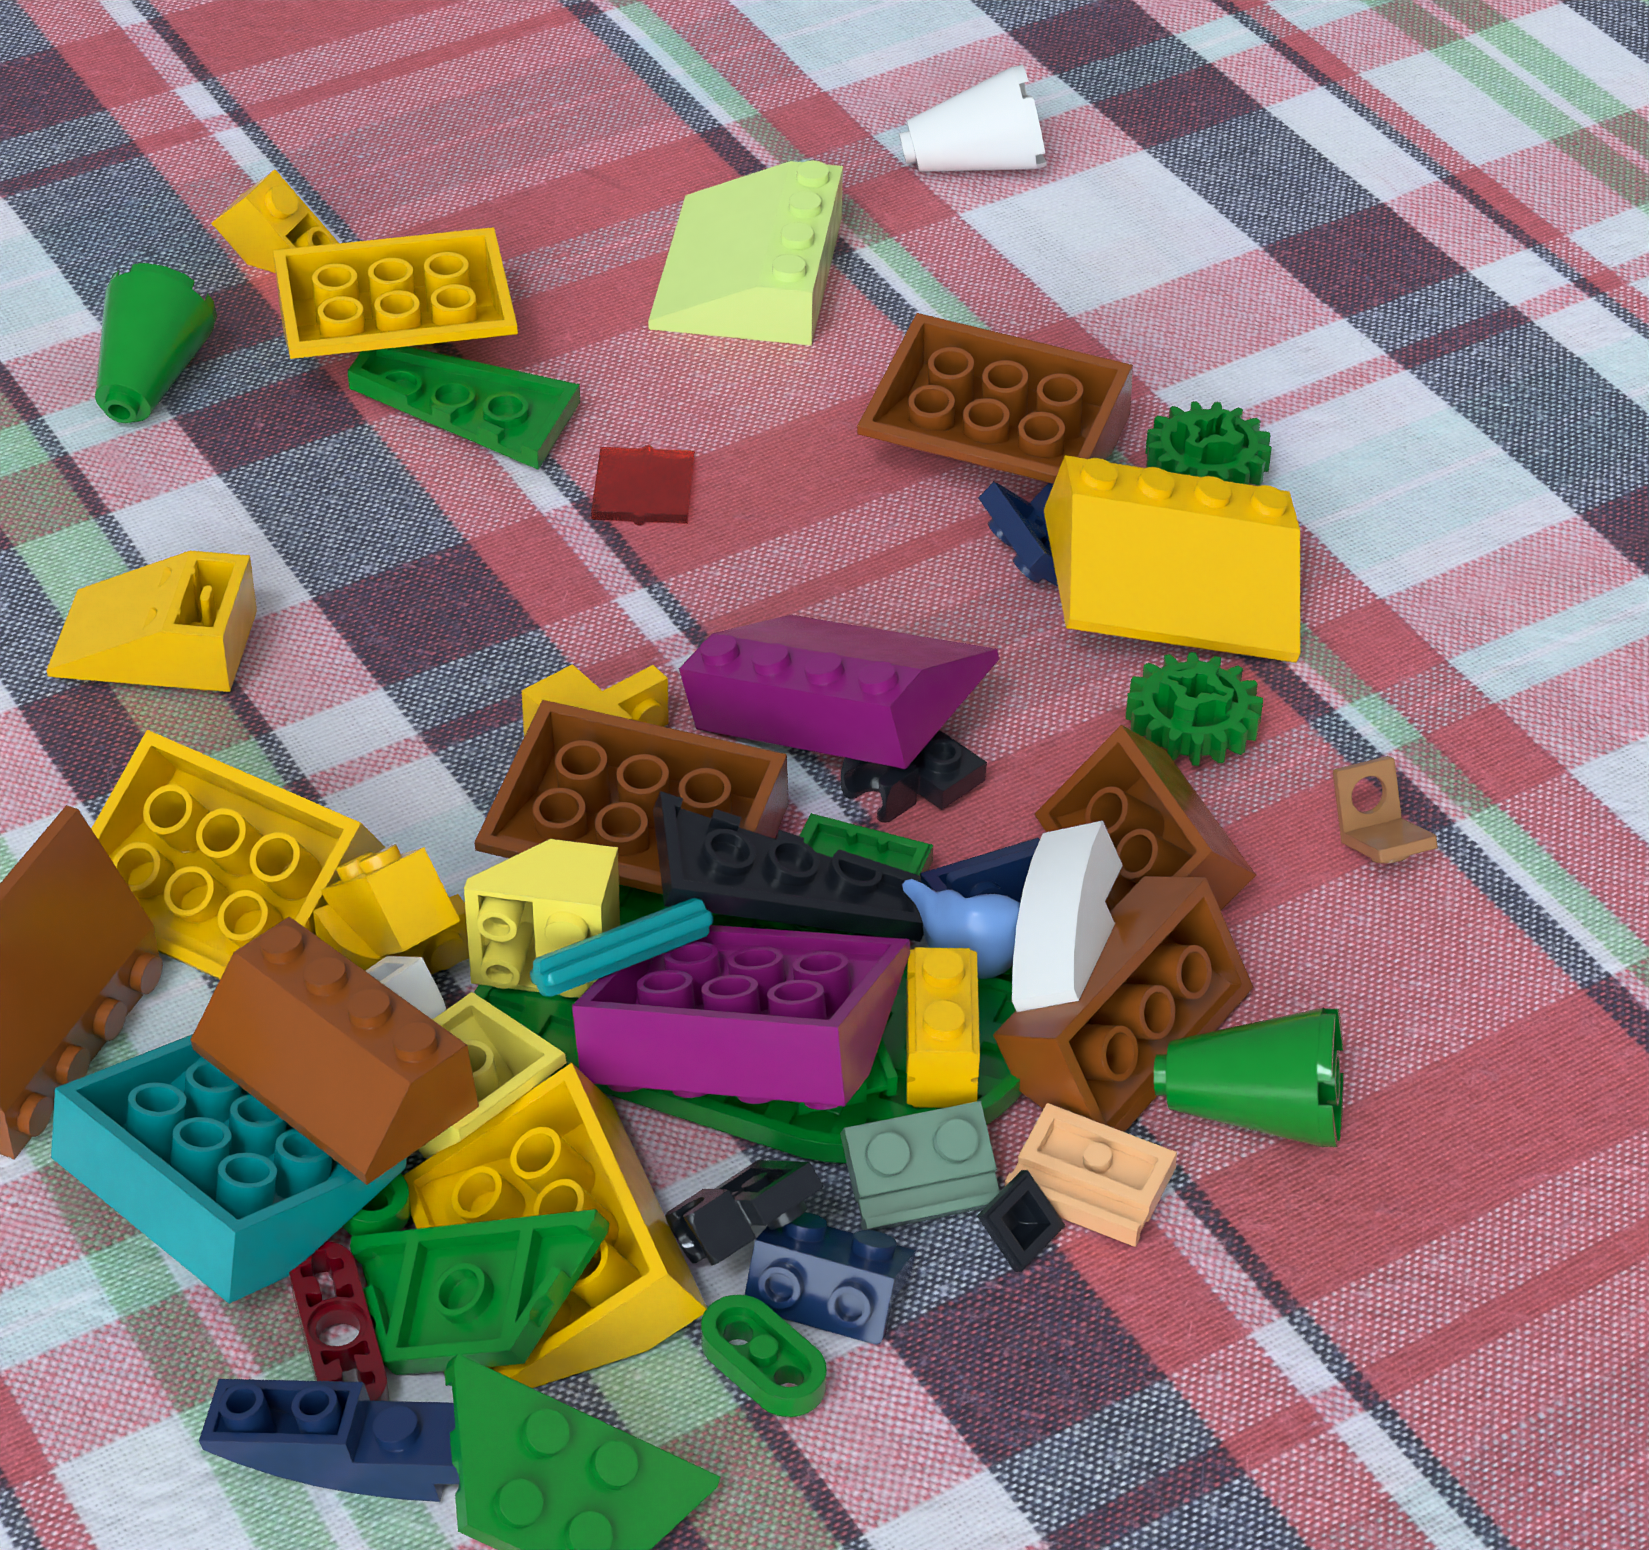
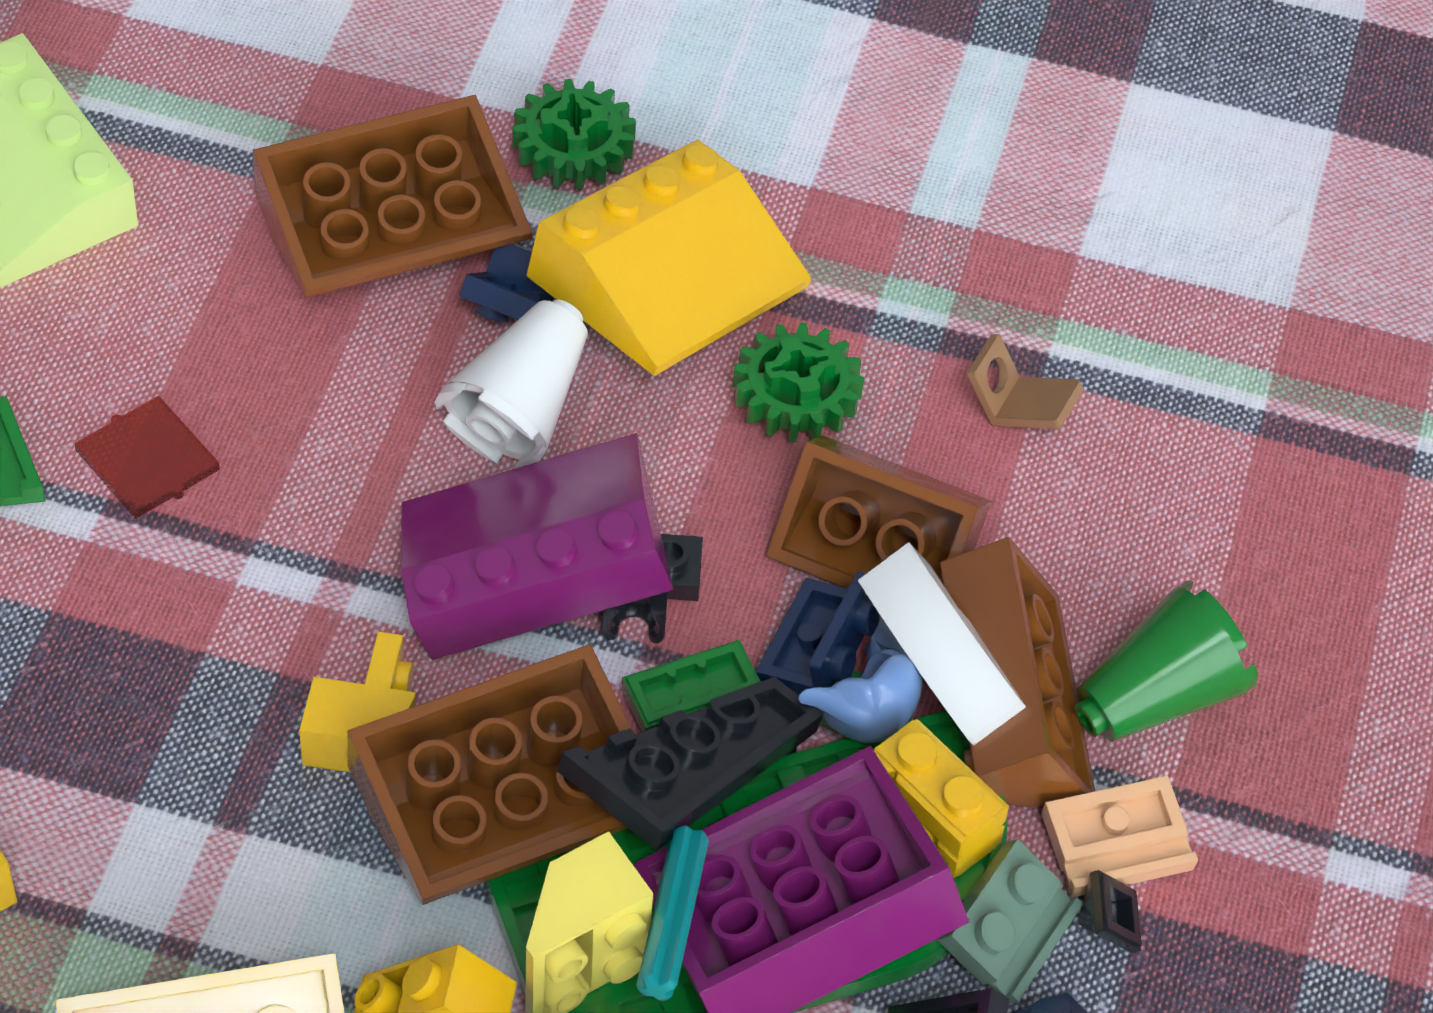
camera: 45 degrees left, 10 degrees up
(950, 568) = (517, 385): none -> white cone

